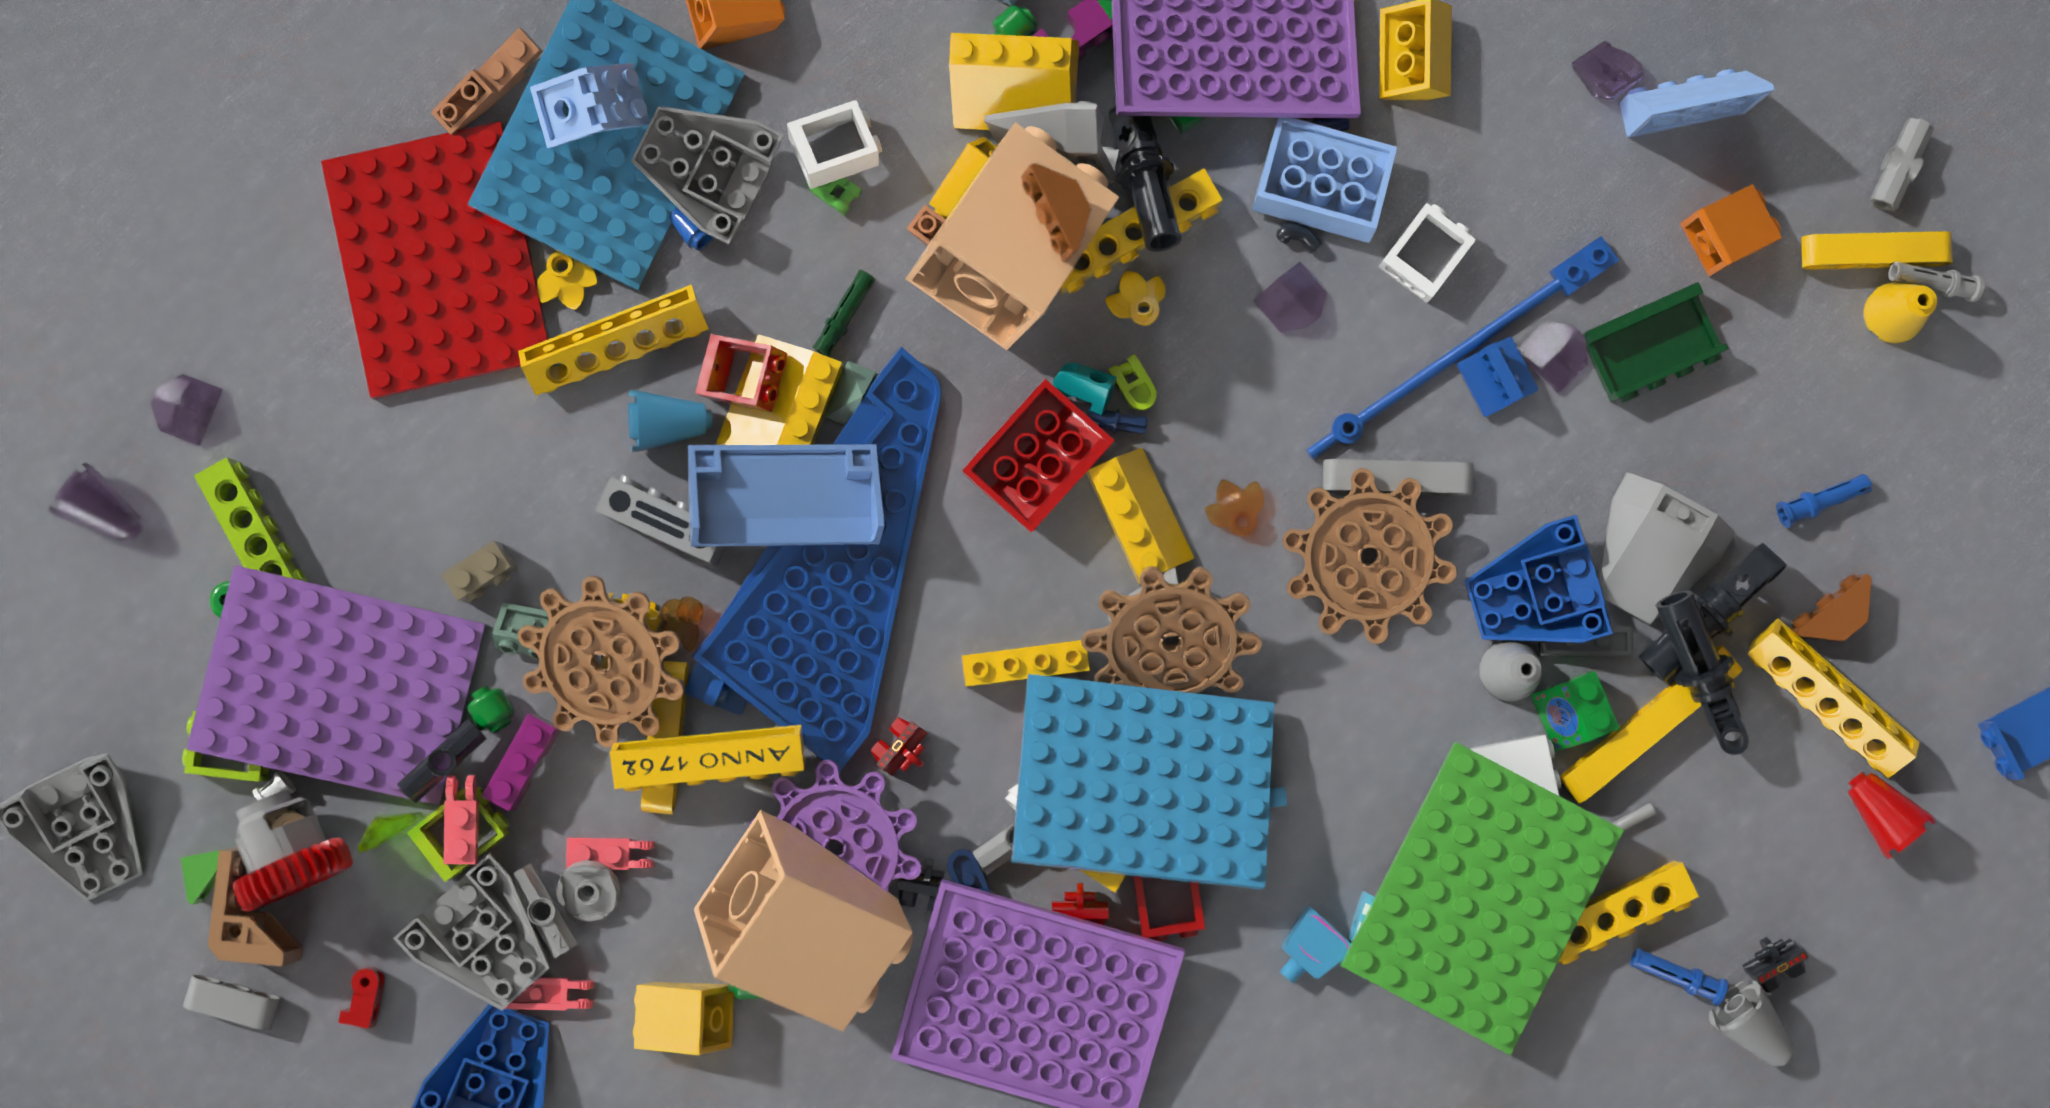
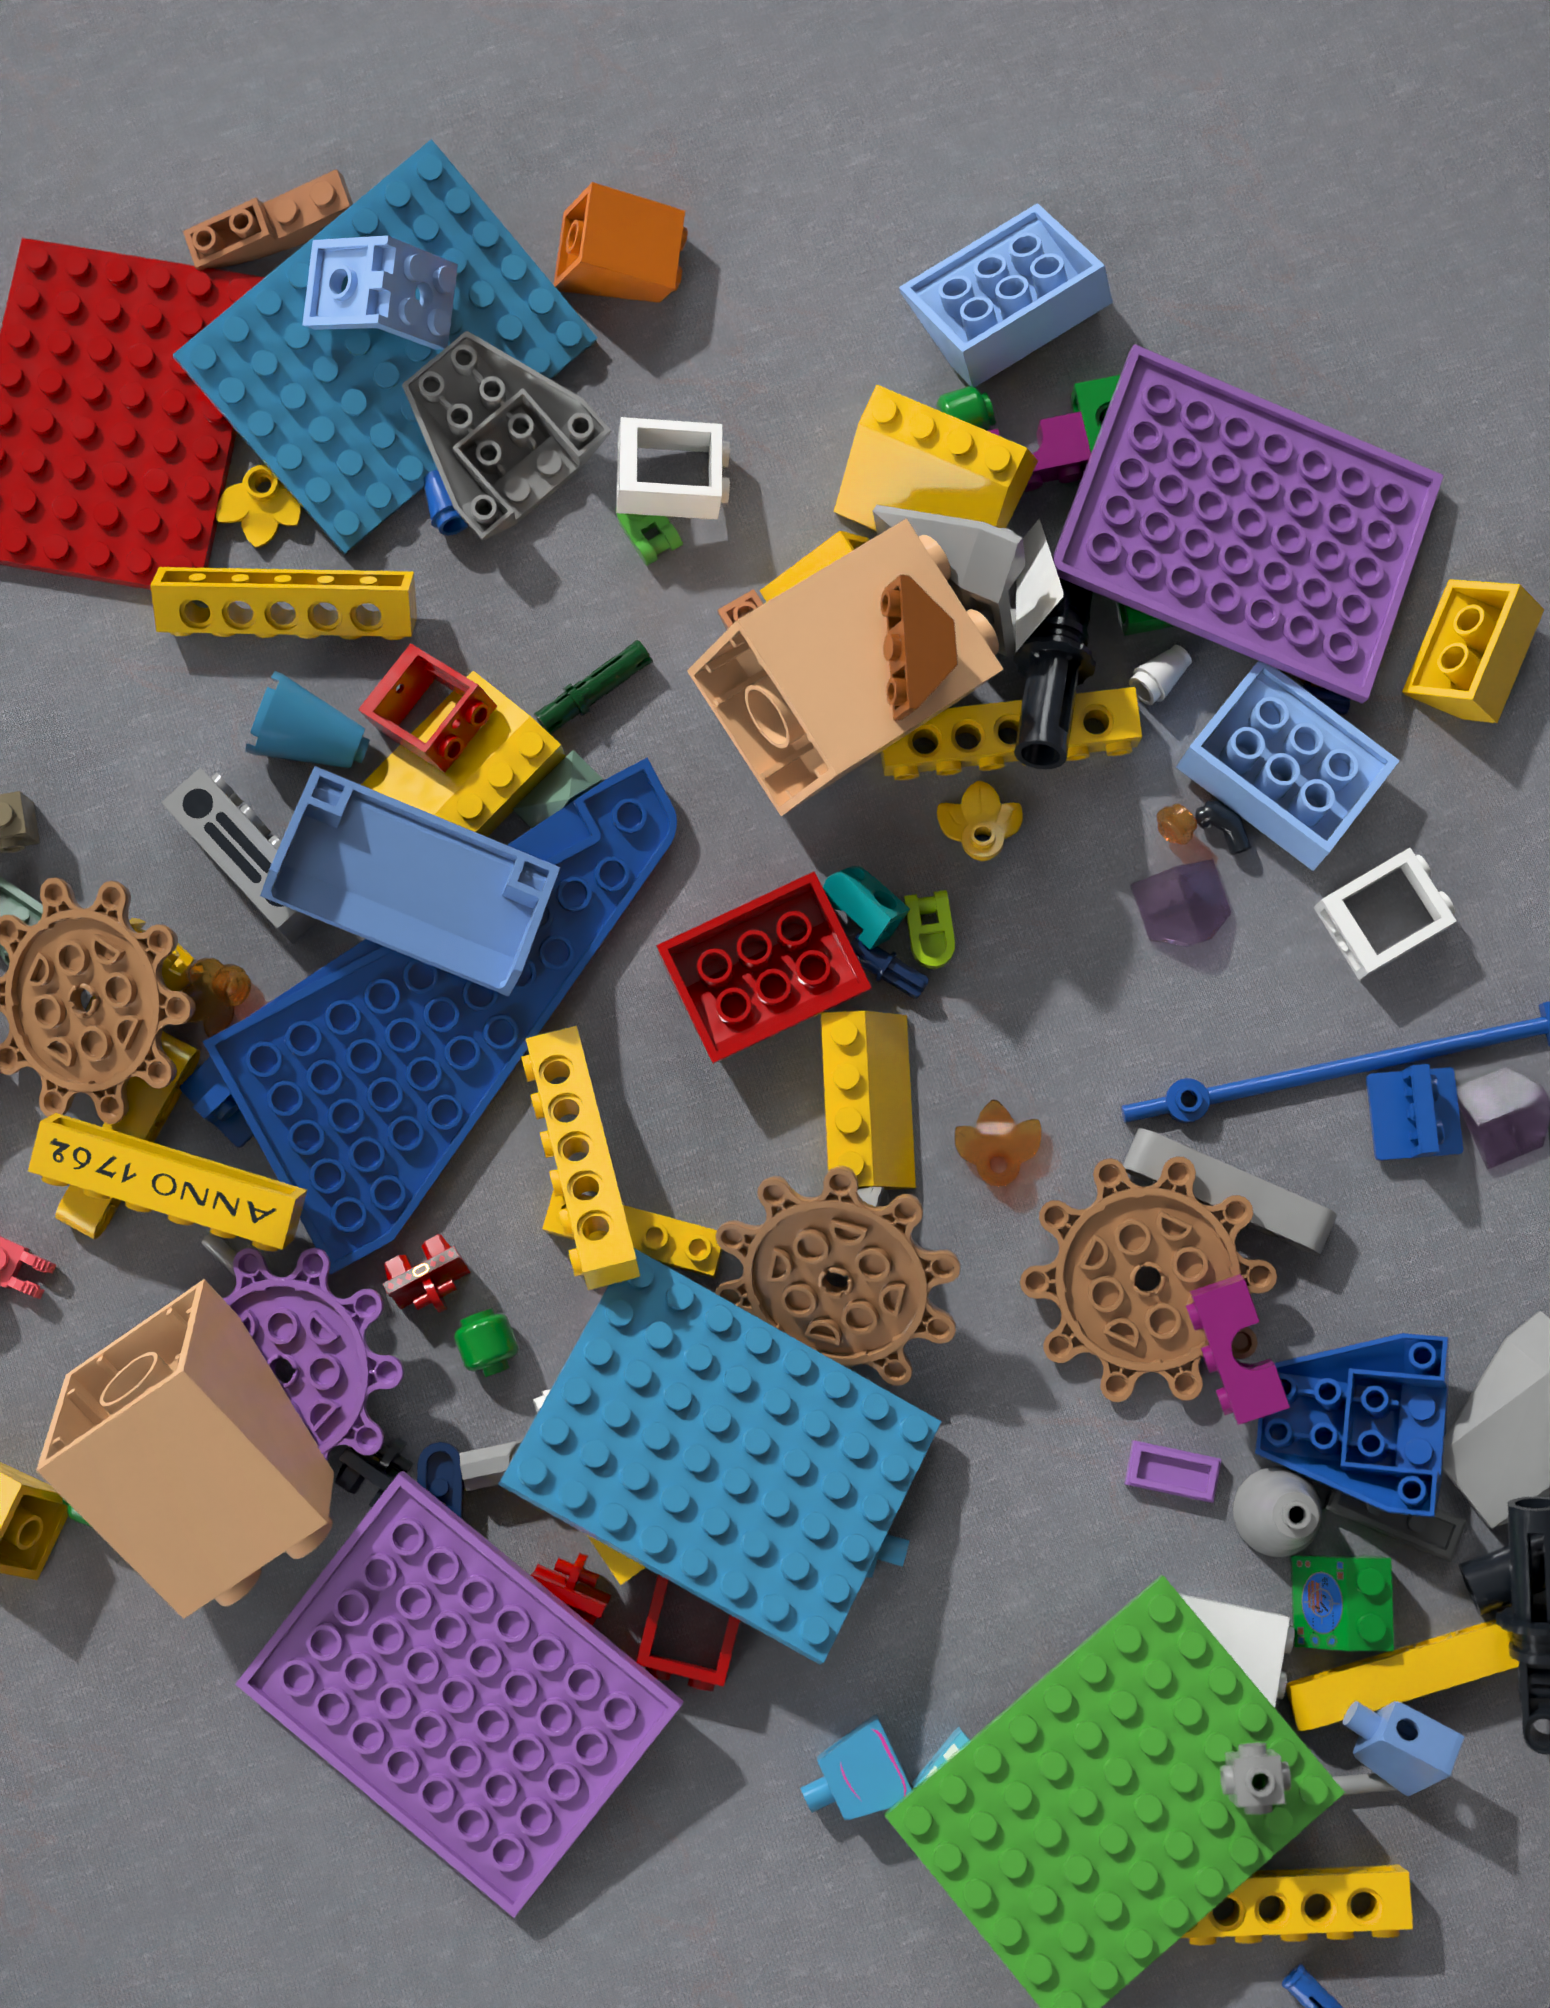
camera: 30 degrees right, 5 degrees down
(930, 567) = (614, 1256): none -> yellow brick
(958, 774) = (486, 1342): none -> green head
(1117, 131) = (1036, 586): none -> white sticker
(1216, 152) = (1159, 675): none -> white cone
(1267, 248) = (1176, 824): none -> clear orange plate
(1433, 672) = (1172, 1471): none -> medium lavender tile
(1462, 600) = (1247, 1389): none -> magenta arch
(1554, 844) = (1241, 1768): none -> light grey brick
(1648, 785) = (1403, 1745): none -> medium blue torso

